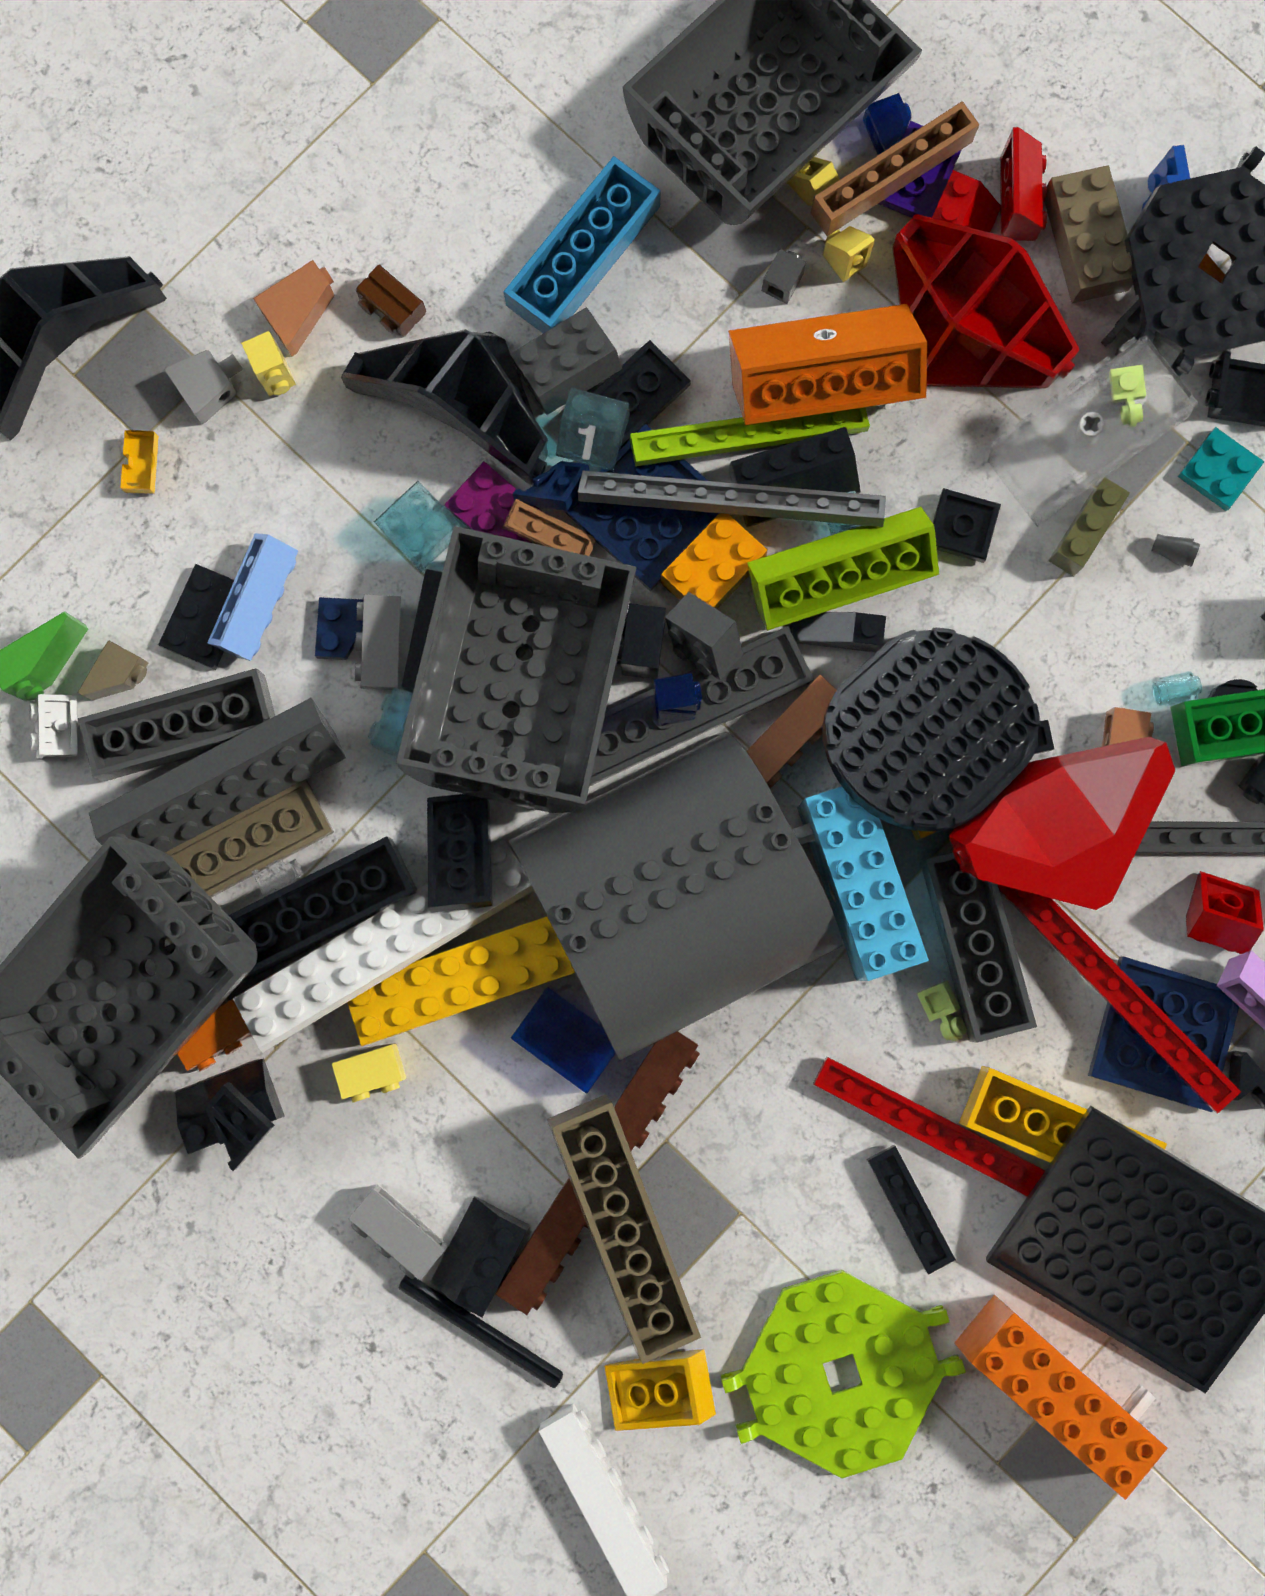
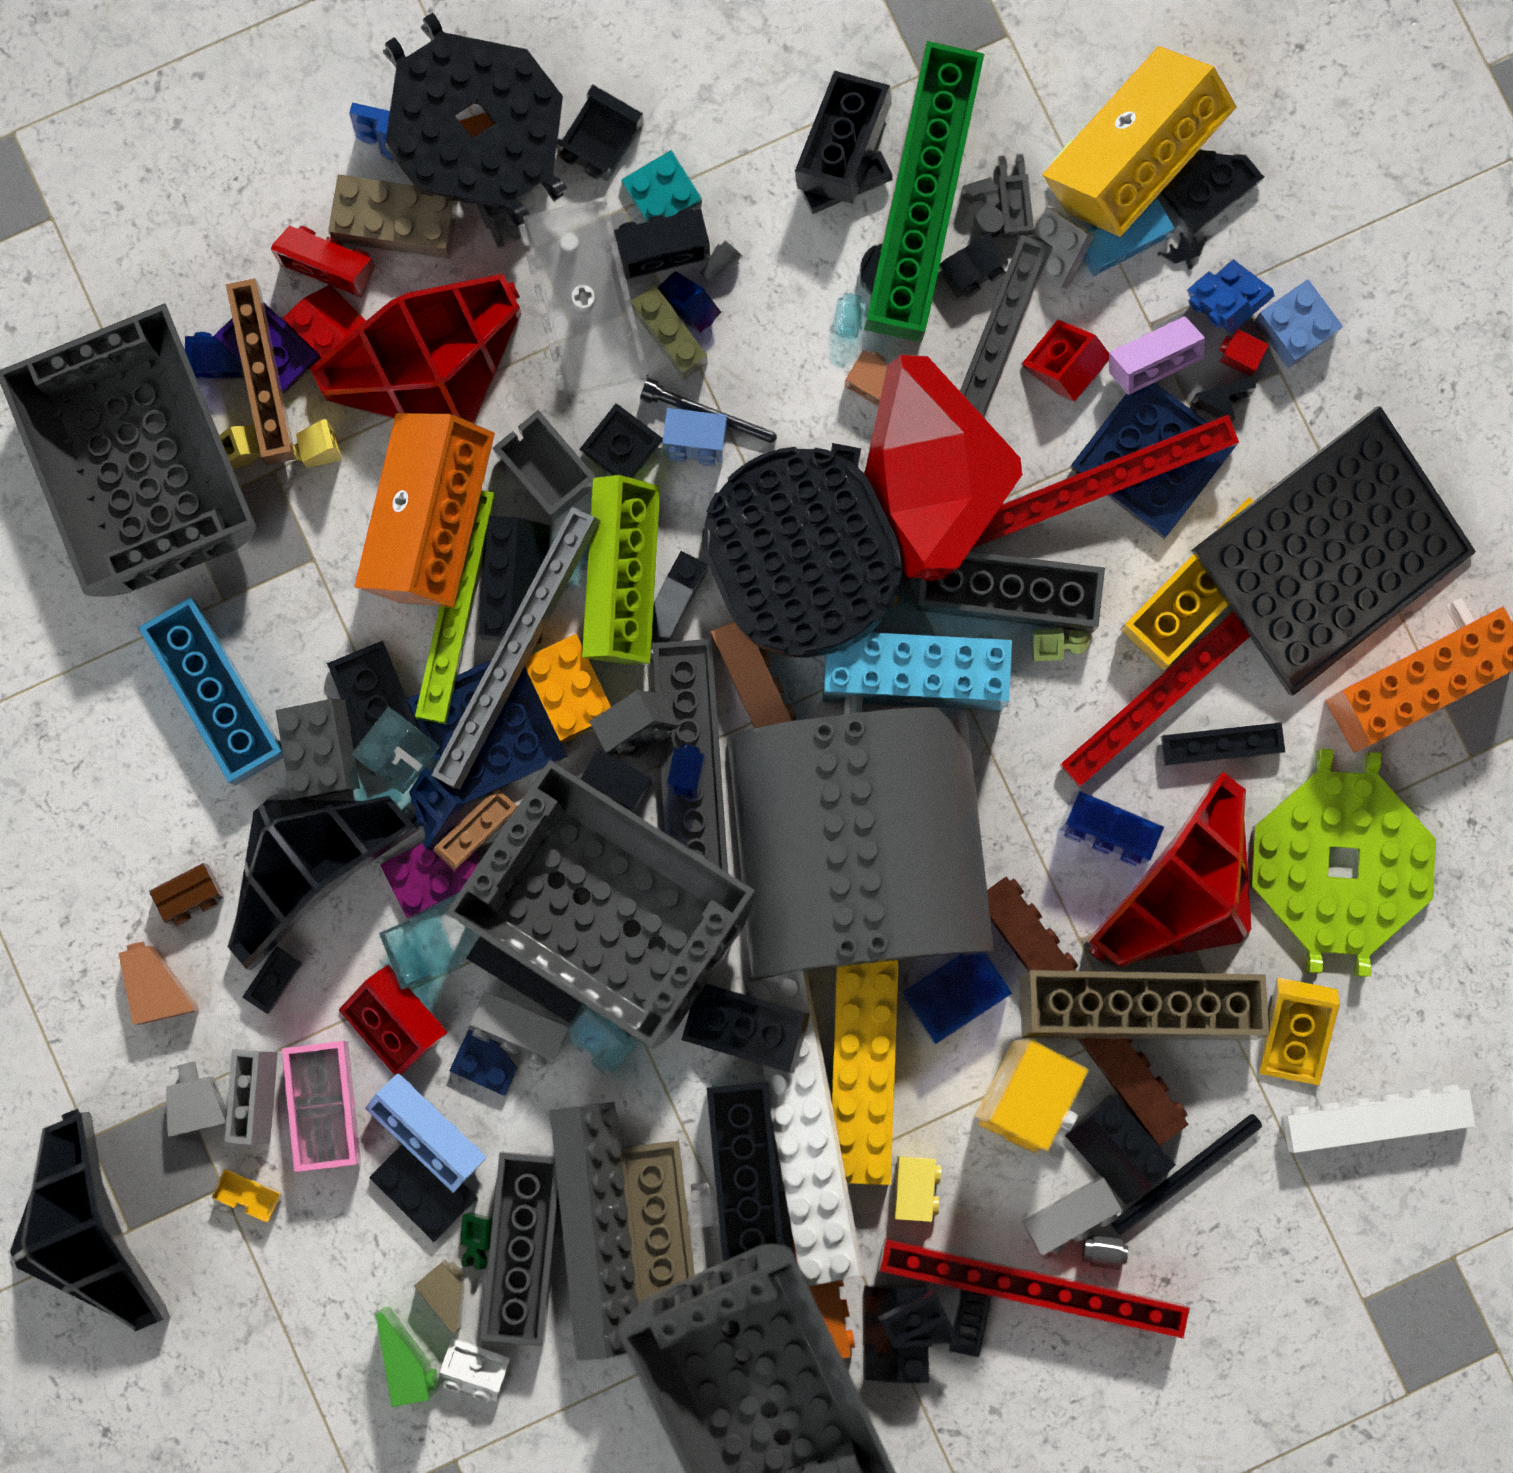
camera: 75 degrees left, 0 degrees up
(175, 678) = (476, 1236): none -> dark green plate
(227, 428) = (251, 1096): none -> light grey brick
(241, 494) = (321, 1106): none -> clear brick
(269, 364) = (206, 1033): light yellow brick -> none
(287, 1169) = (976, 1298): none -> black slope
(315, 1224) = (1033, 1288): none -> red brick
(342, 407) = (272, 980): none -> black plate
(345, 528) = (392, 1021): none -> red slope
(376, 1278) = (1104, 1252): none -> dark grey brick
(486, 1150) = (1031, 1096): none -> yellow piece
(754, 1233) = (1193, 890): none -> red panel
(783, 275) = (315, 513): dark grey brick -> none
(783, 1130) = (1110, 829): none -> clear blue brick
(914, 460) = (545, 466): none -> dark grey piece
(1000, 586) = (694, 436): none -> medium blue brick
(1025, 535) = (654, 392): none -> black piece
(1126, 535) = (689, 301): none -> clear blue slope
(1128, 385) = (563, 252): yellowish green plate -> none
(1171, 484) = (663, 243): none -> black brick

